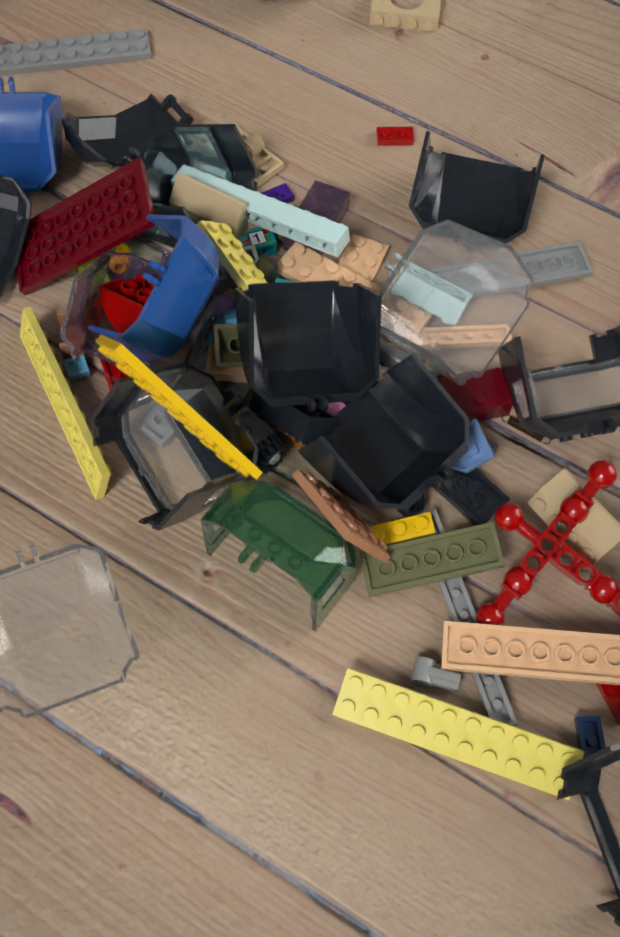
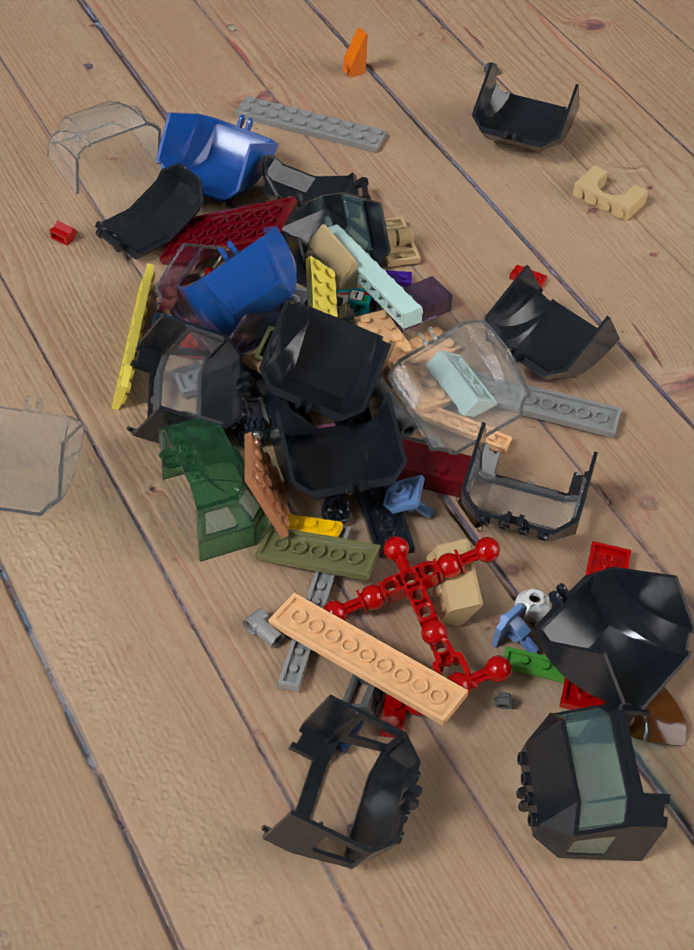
camera: 30 degrees right, 15 degrees down
(176, 406) = (186, 339): yellow plate -> none
(454, 731) = (243, 664): light yellow plate -> none
(592, 695) = (372, 698): none -> dark grey tile

